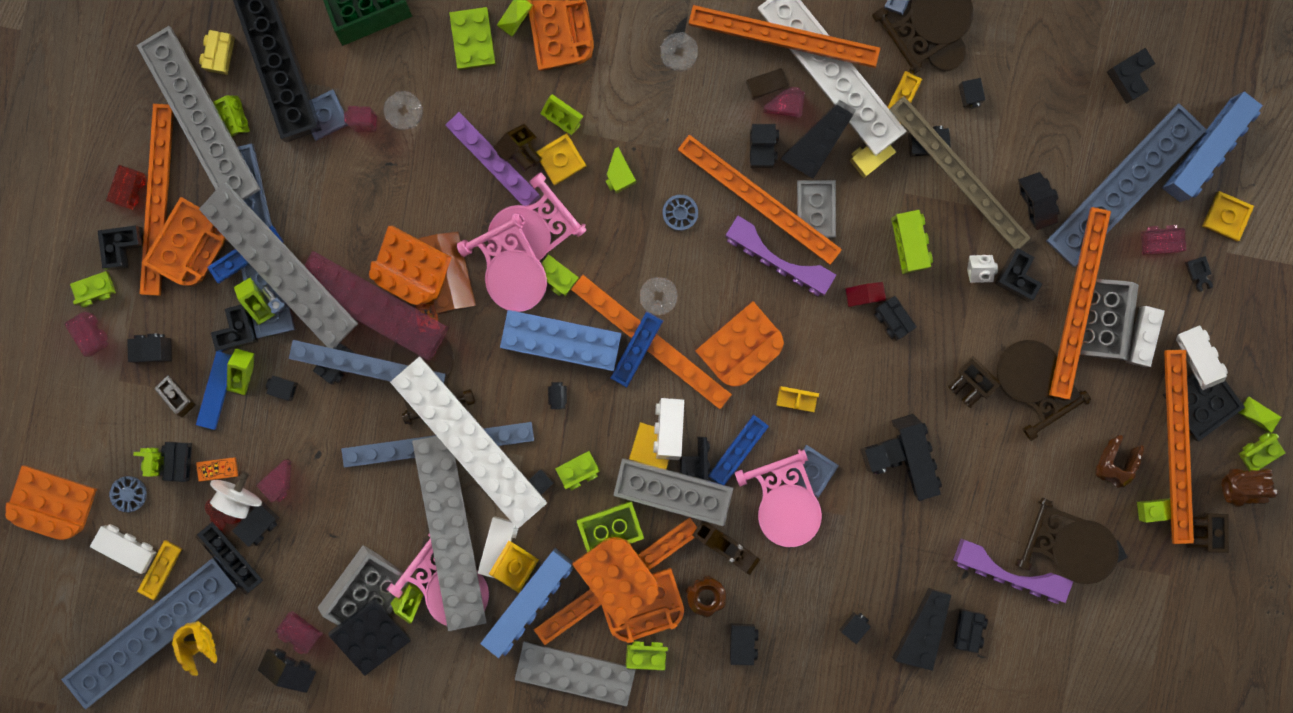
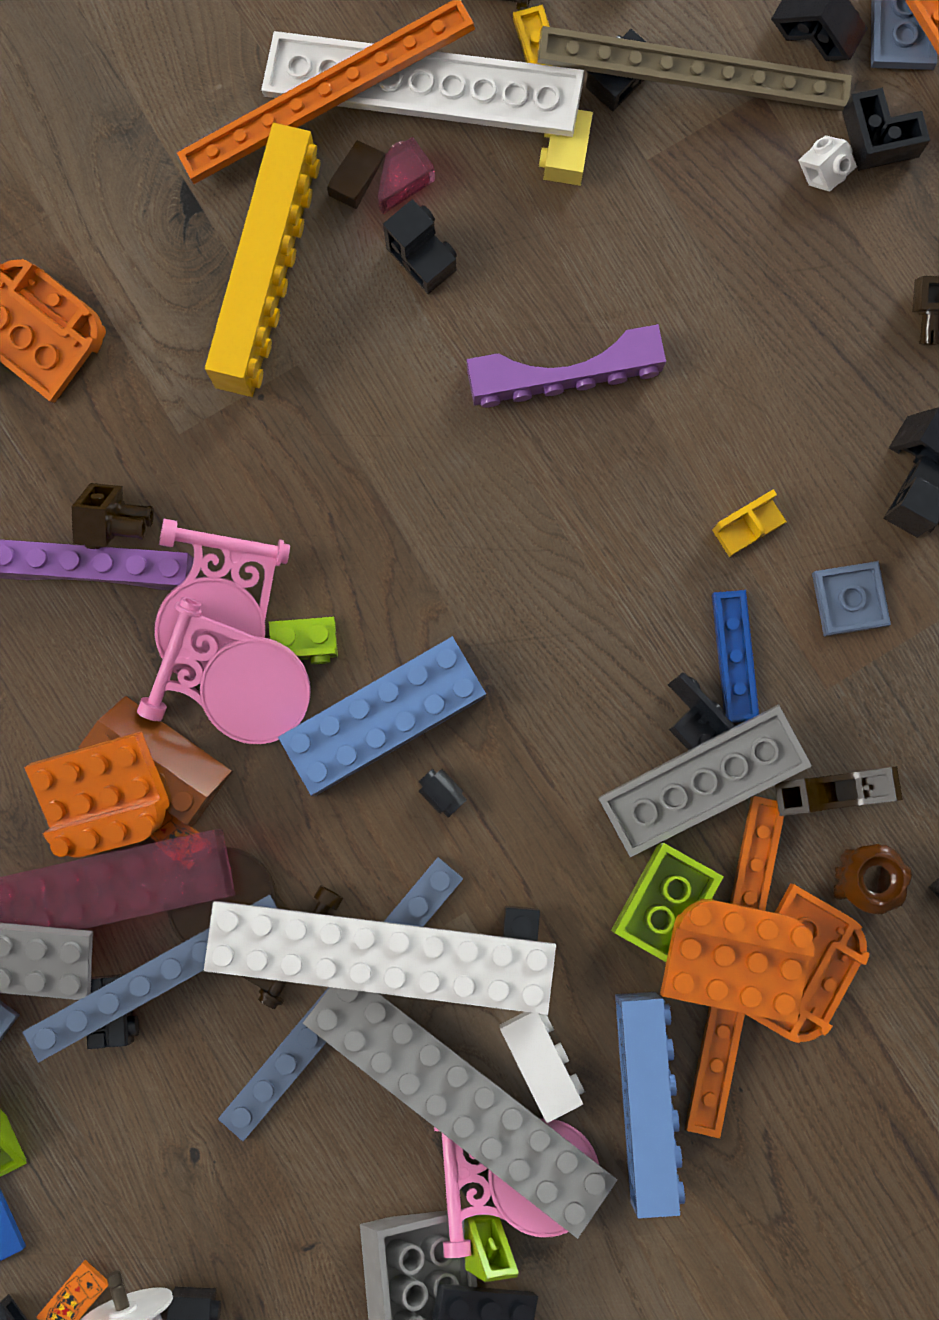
camera: 40 degrees left, 5 degrees down
(277, 482) = (169, 1244): clear pink slope -> none
(281, 388) = (66, 1110): black brick -> none
(513, 566) = (585, 1070): yellow tile -> none
(561, 114) = (129, 429): lime bracket -> none
(561, 159) = (179, 489): yellow tile -> none
(575, 673) = (792, 1139): light grey plate -> none
(577, 470) = (555, 866): lime bracket -> none
(619, 173) = (269, 439): lime slope -> none
(636, 349) = (490, 640): blue tile -> none
(643, 447) = (622, 747): yellow tile -> none
(646, 657) = (864, 1031): lime bracket -> none
(659, 347) = (500, 617): orange plate -> none
(660, 285) = (446, 535): clear plate -> none
(669, 47) = (203, 212): clear plate -> none
(669, 429) = (625, 705): white brick -> none
(680, 212) = (390, 423): sand blue wheel -> none
(687, 90) = (263, 261): none -> yellow brick
(742, 346) = (621, 520): orange plate -> none
(759, 200) = (477, 318): orange plate -> none
(789, 511) = (870, 676): bright pink piece -> none
(816, 144) = (486, 180): black wedge -> none
(818, 205) = (556, 271): light grey tile -> none
(865, 294) = (712, 321): dark red slope -> none
(894, 318) = (778, 317): black brick -> none
(911, 241) = (713, 202): lime brick -> none

